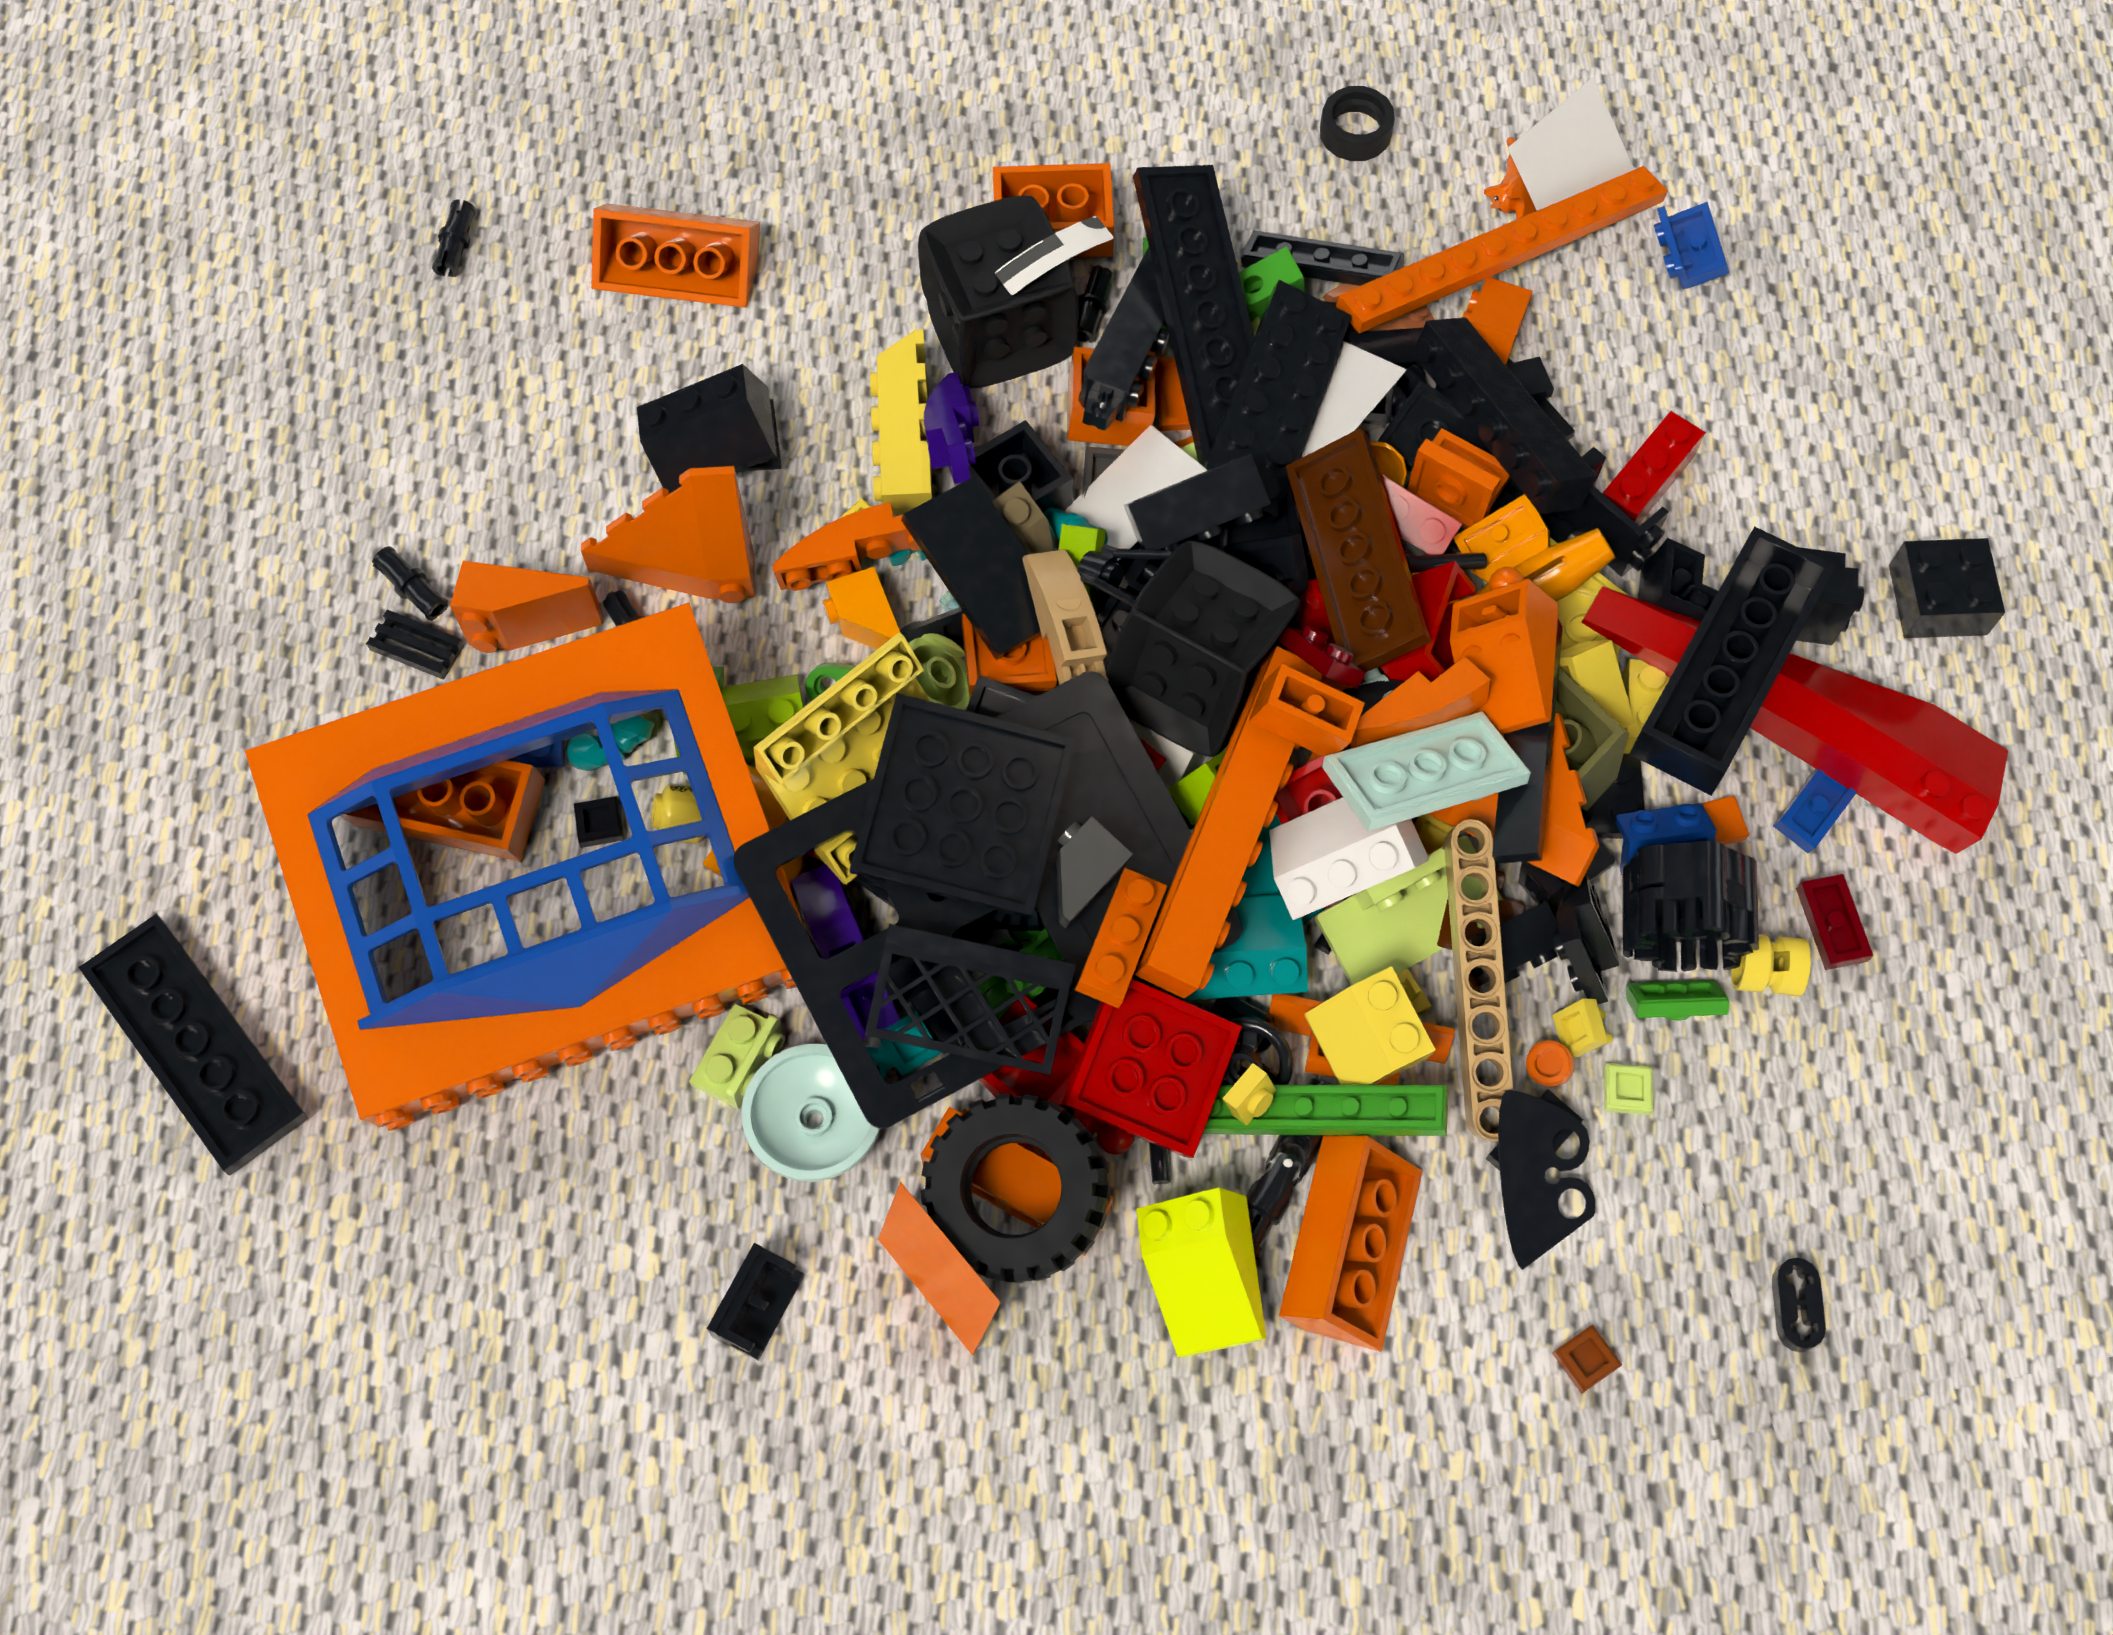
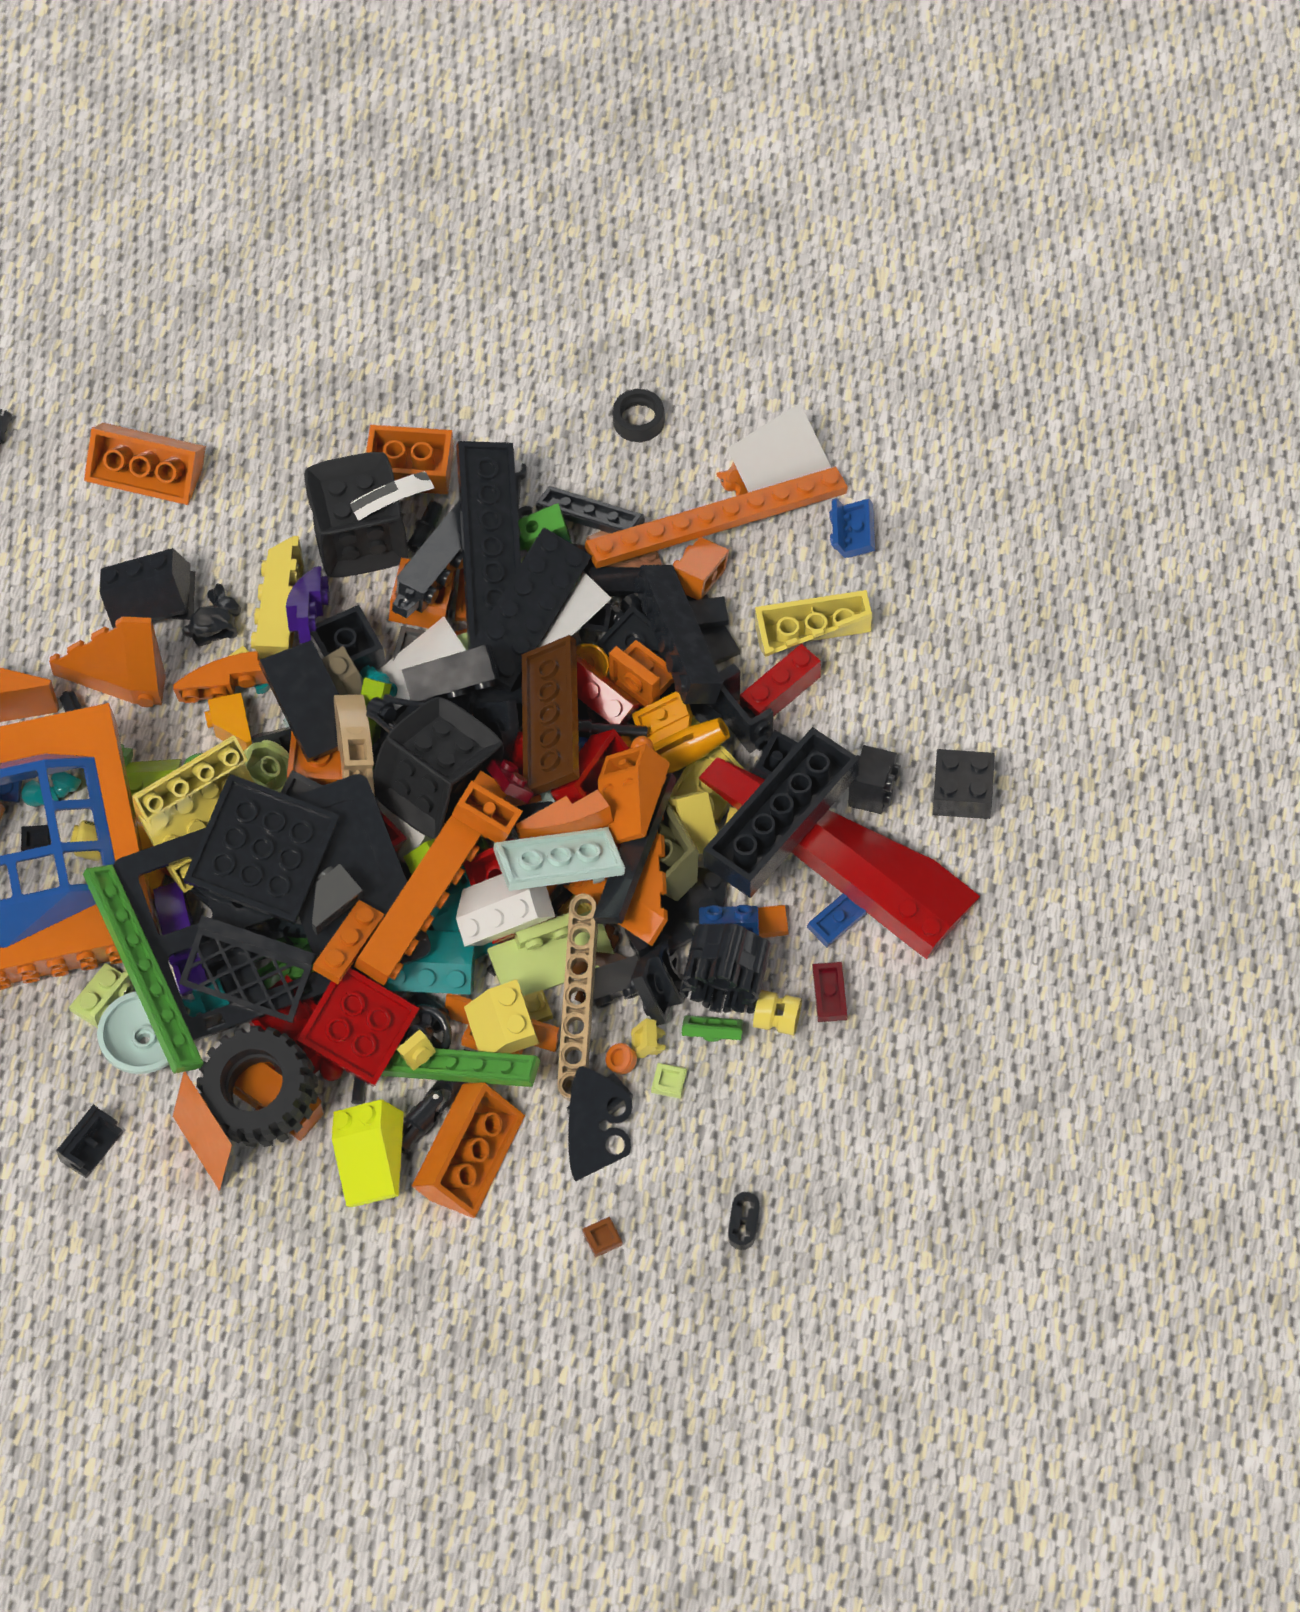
camera: 10 degrees right, 5 degrees down
(809, 1024) = (143, 969): none -> bright green tile
(812, 467) = (213, 621): none -> black animal
(1651, 383) = (811, 619): none -> light yellow wedge

